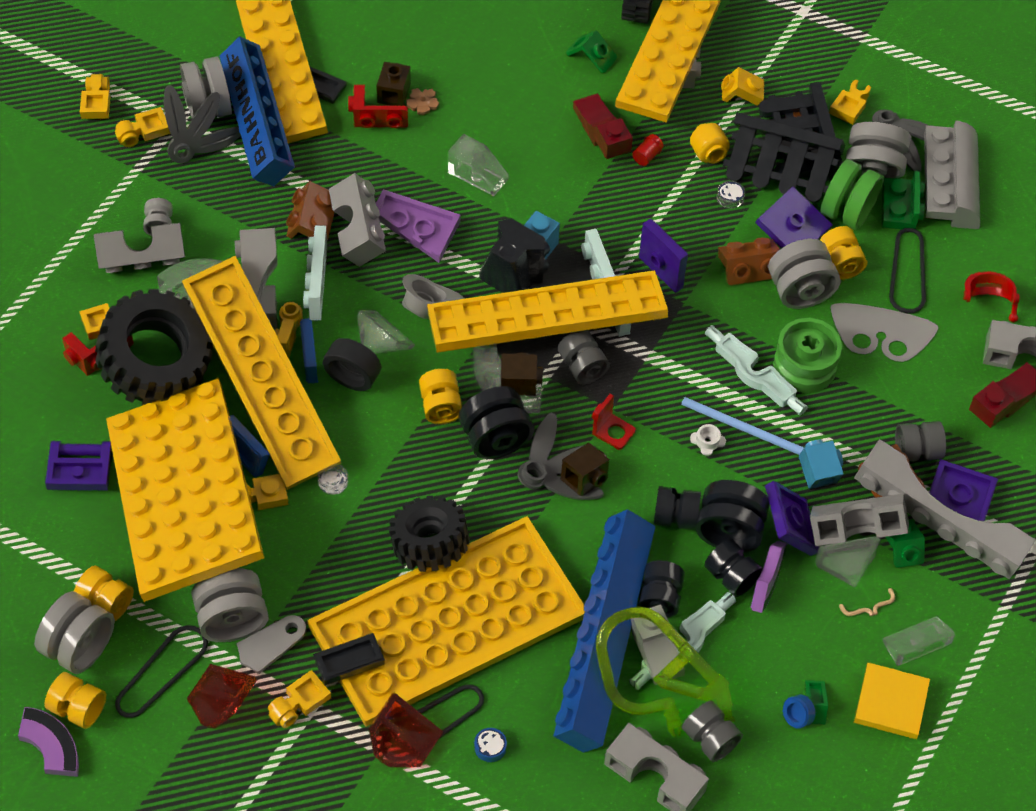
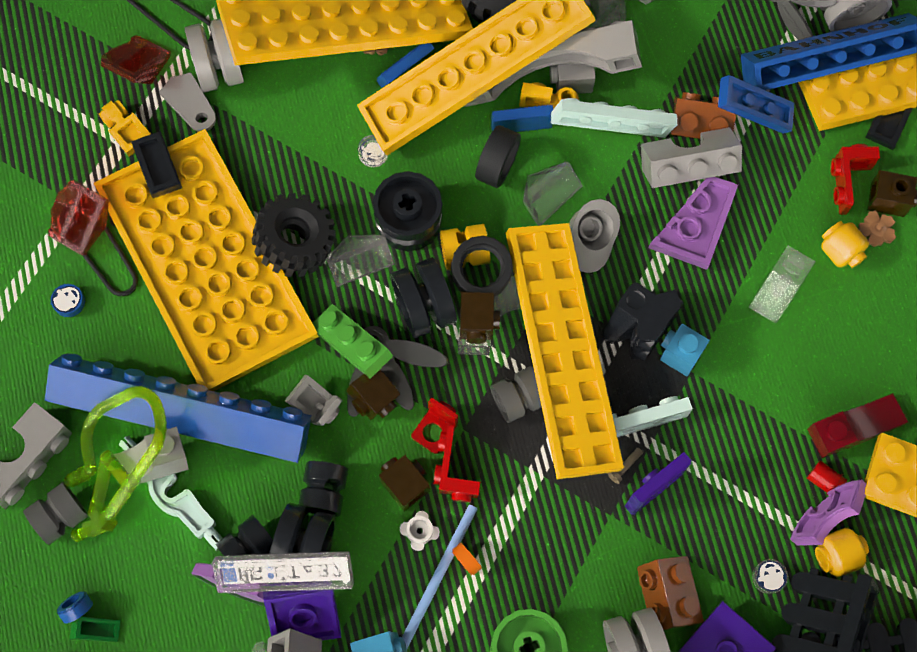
camera: 90 degrees right, 15 degrees up
(268, 492) = (356, 87): yellow plate -> none
(309, 166) = (756, 104): none -> blue plate
(404, 441) = (408, 210): none -> black wheel
(441, 120) = (845, 244): none -> yellow head
(445, 481) = (358, 257): none -> clear slope
(476, 351) = (482, 243): none -> black tyre
(537, 482) = (352, 341): none -> bright green plate
(591, 520) = (314, 401): none -> light grey bracket
(651, 414) = (460, 489): none -> red bracket
(661, 586) = (224, 468): black wheel -> none
(666, 447) = (404, 481): none -> dark brown brick
(678, 146) = (819, 521): none -> medium lavender tile
(732, 401) = (466, 559): none -> orange tile
(764, 516) = (283, 572): none -> clear tile
(767, 379) = (502, 602): light aqua piece -> none

